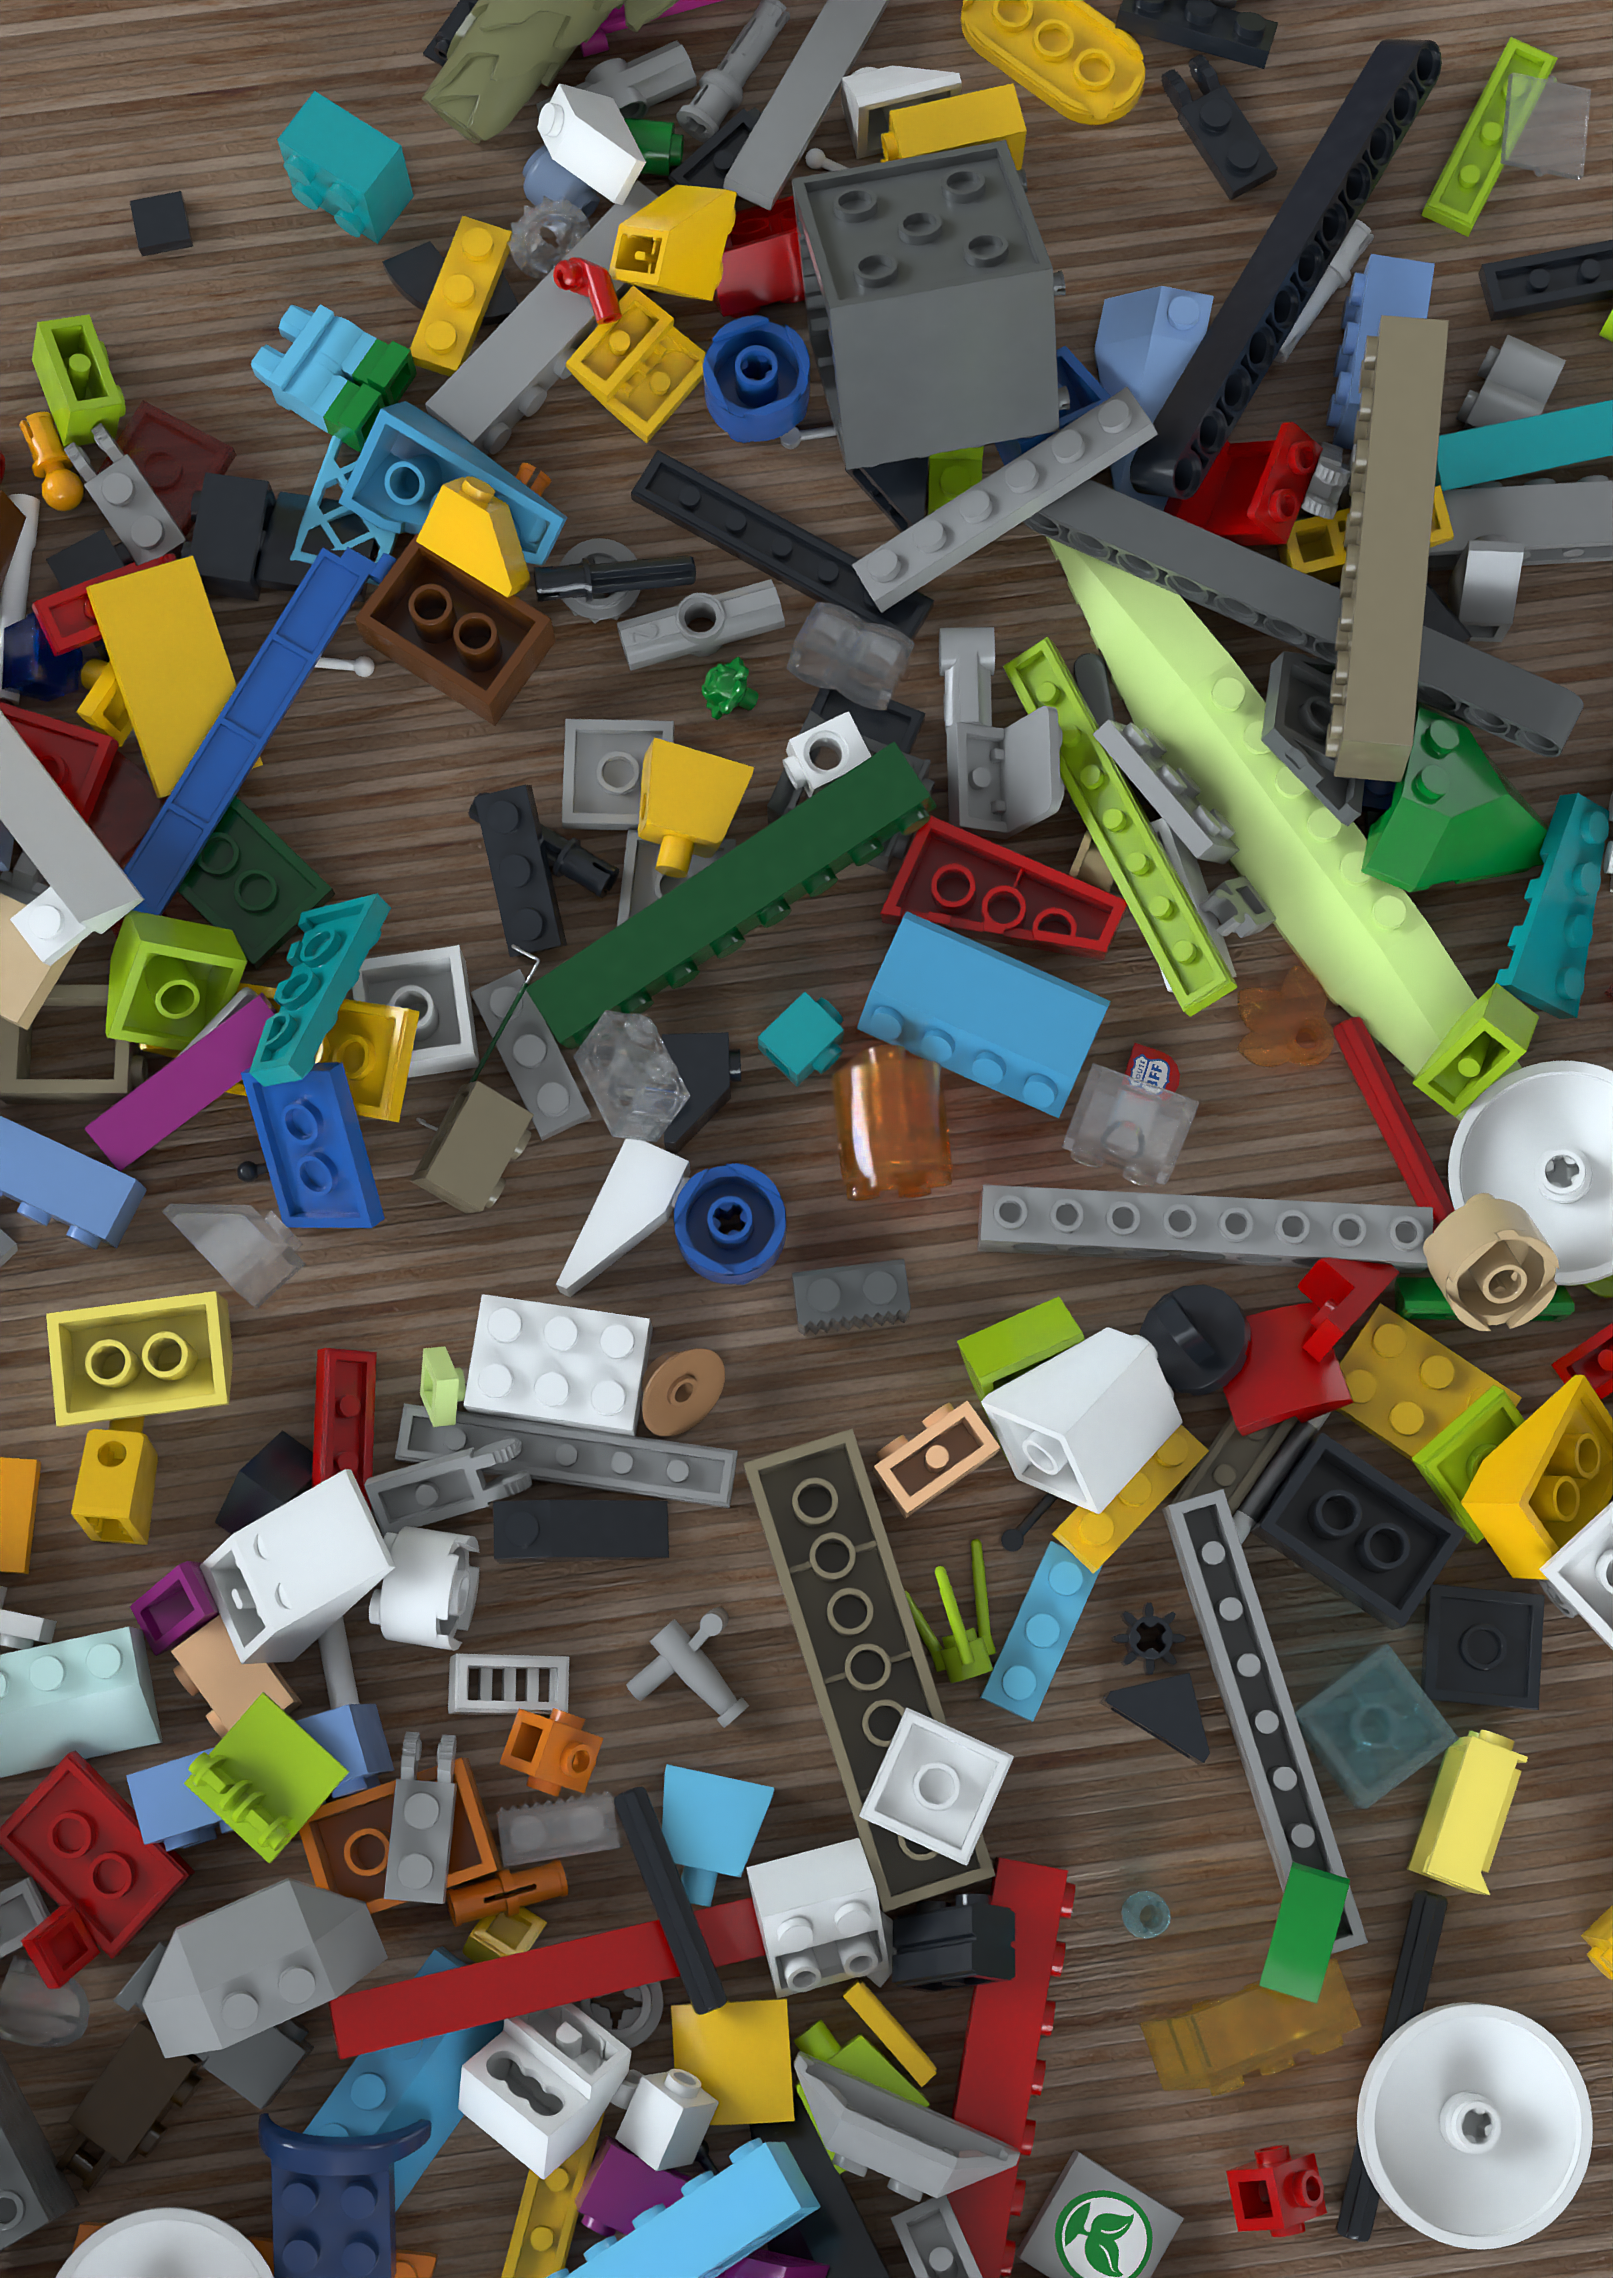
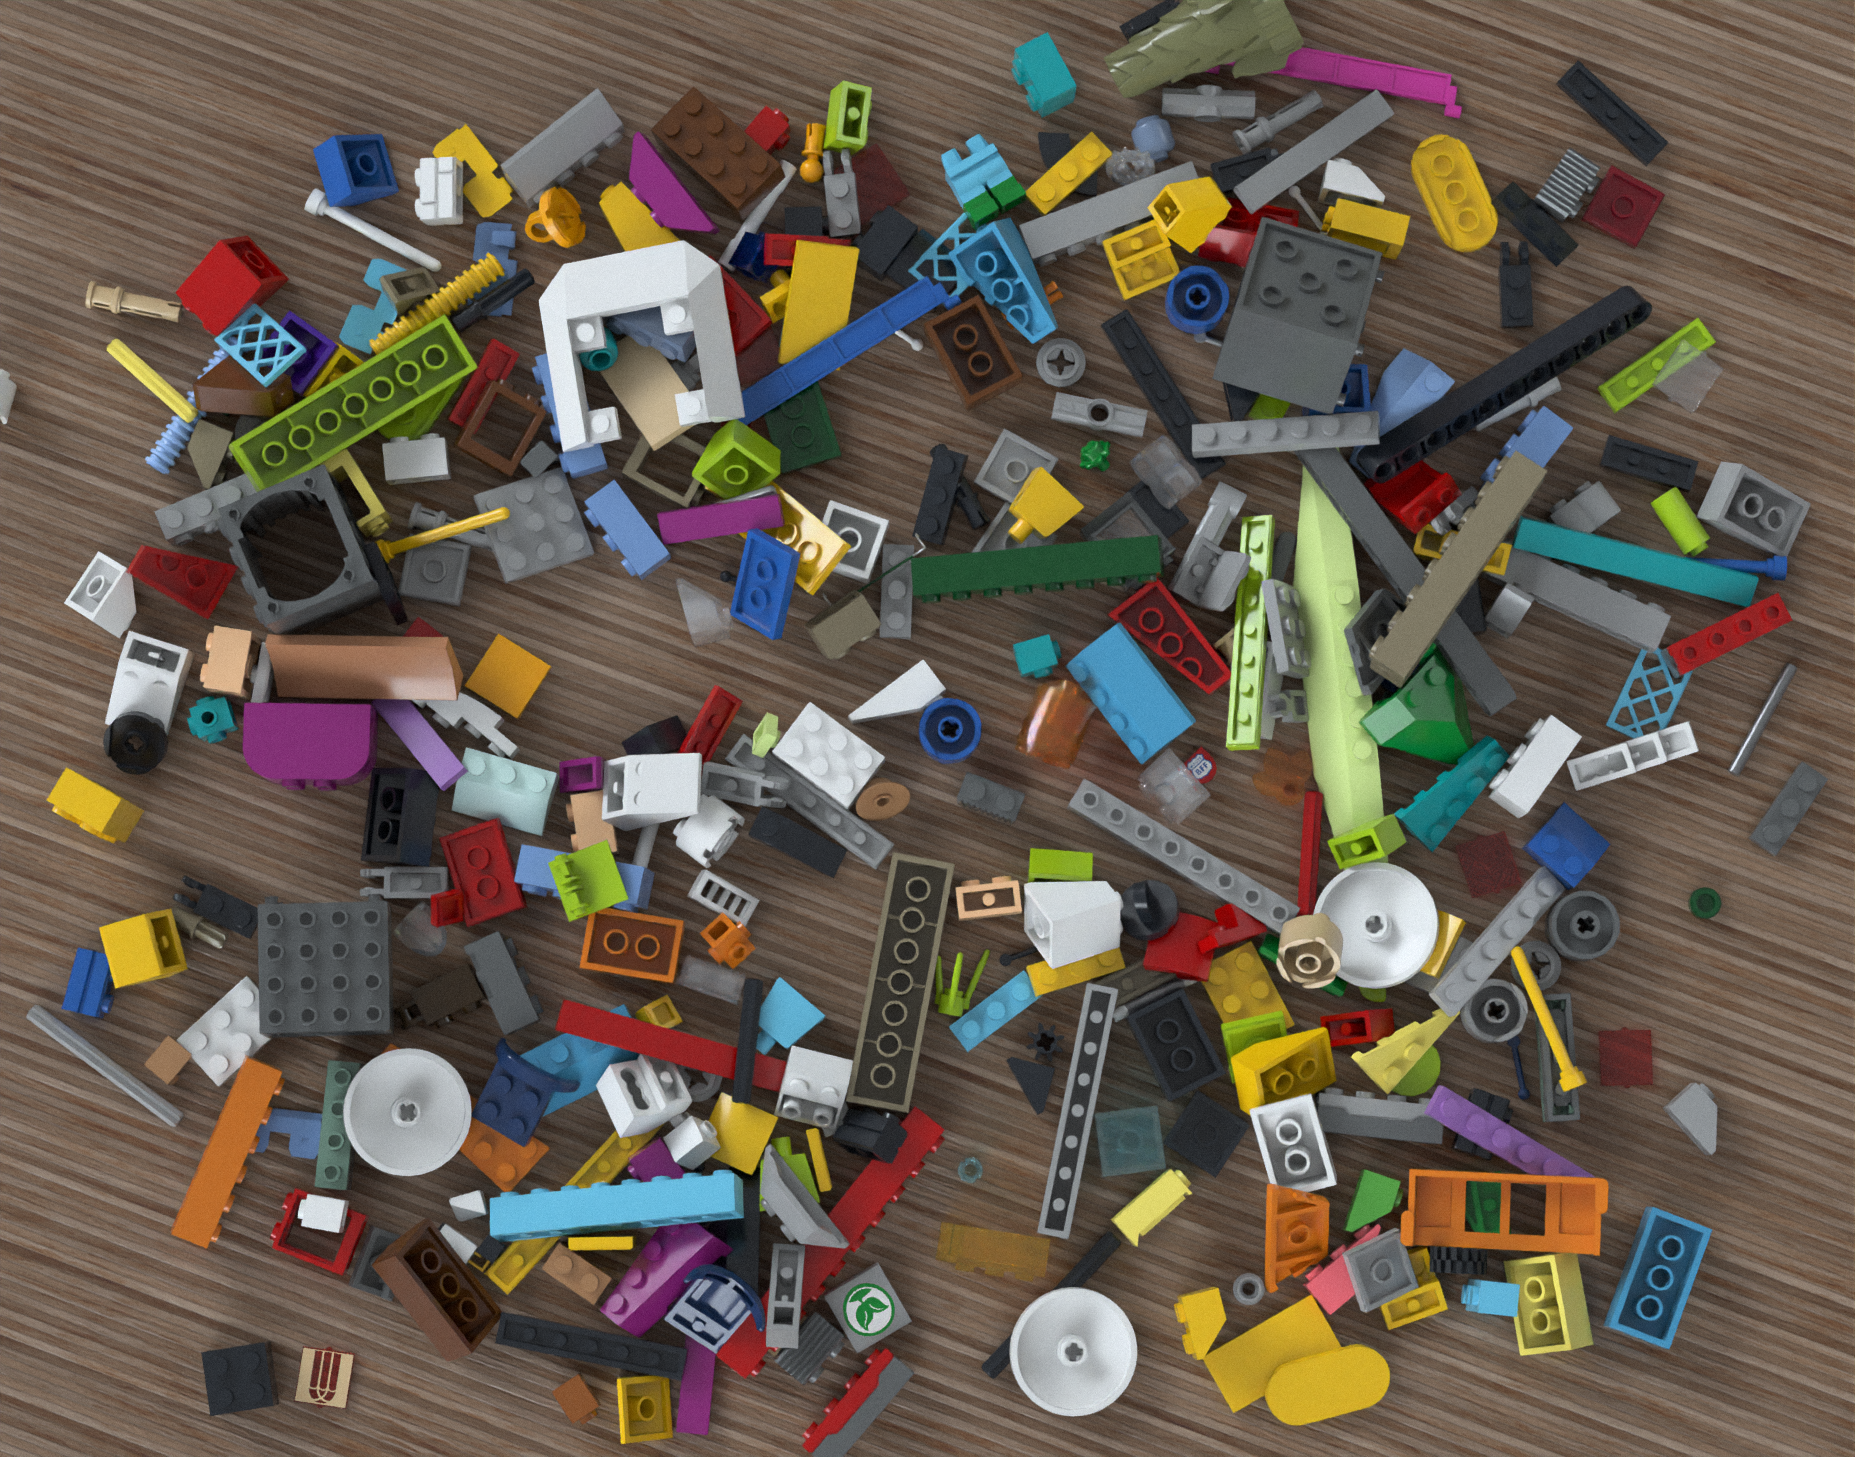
camera: 25 degrees right, 5 degrees up
(116, 1483) = (580, 707): yellow torso -> none
(140, 1358) = (627, 644): light yellow slope -> none
(161, 223) = (934, 49): black tile -> none
(258, 1965) = (539, 966): light grey wedge -> none
(322, 974) = (814, 500): teal wing -> none
(422, 1826) = (648, 942): light grey hinge -> none
(469, 1905) = (691, 1002): orange pin -> none
(476, 535) = (1007, 314): yellow slope -> none
(588, 579) = (1066, 367): black axle -> none
(591, 141) = (1178, 129): white slope -> none
(592, 282) = (1137, 205): red arm -> none
(631, 1076) = (939, 631): clear brick -> none
(657, 144) = (1207, 140): green brick -> none
(683, 1655) = (815, 930): light grey piece -> none
(707, 1072) = (970, 650): black slope -> none
(839, 735) = (1135, 515): white brick -> none
(936, 1786) = (902, 1055): white tile -> none
(1276, 2191) = (962, 1331): red brick -> none
(1304, 1932) = (1039, 1216): green slope -> none

